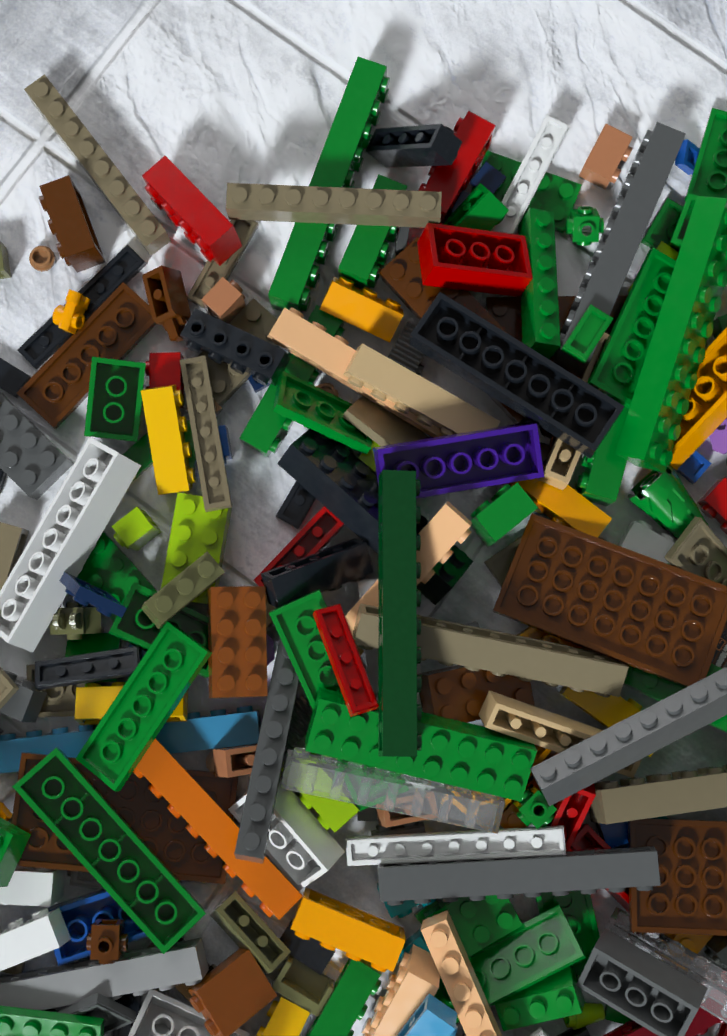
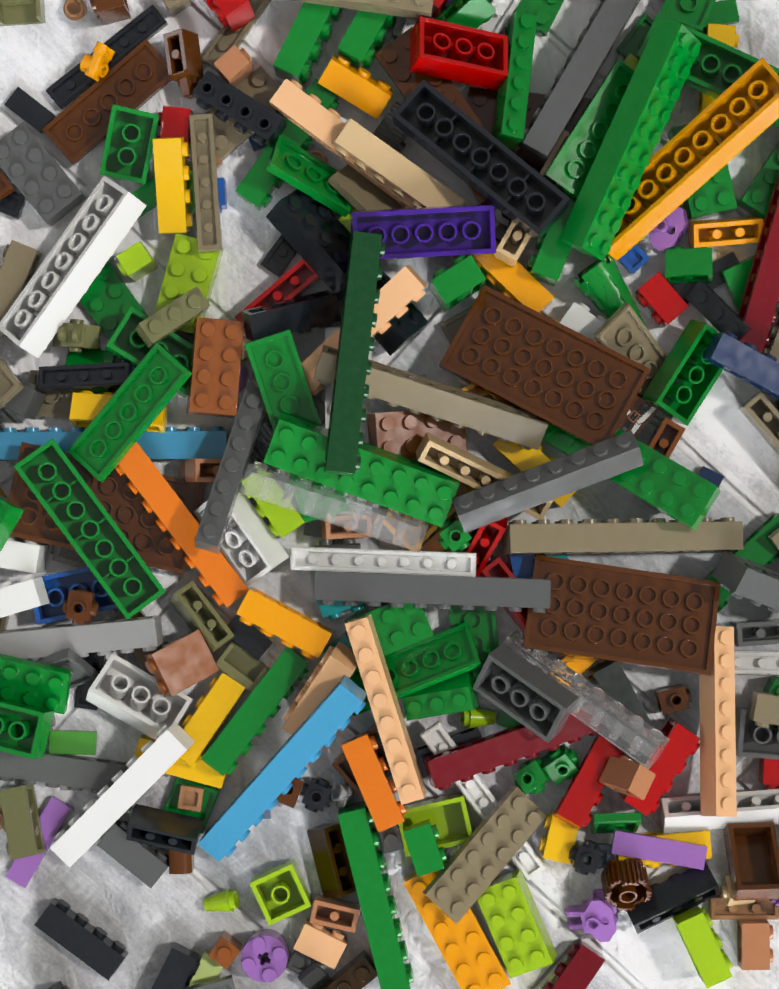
camera: 10 degrees right, 5 degrees up
(87, 593) = (94, 314): dark blue plate -> none
(345, 660) = (304, 389): red tile -> none
(584, 217) = (567, 24): green brick -> none
(587, 334) = (548, 131): green tile -> none

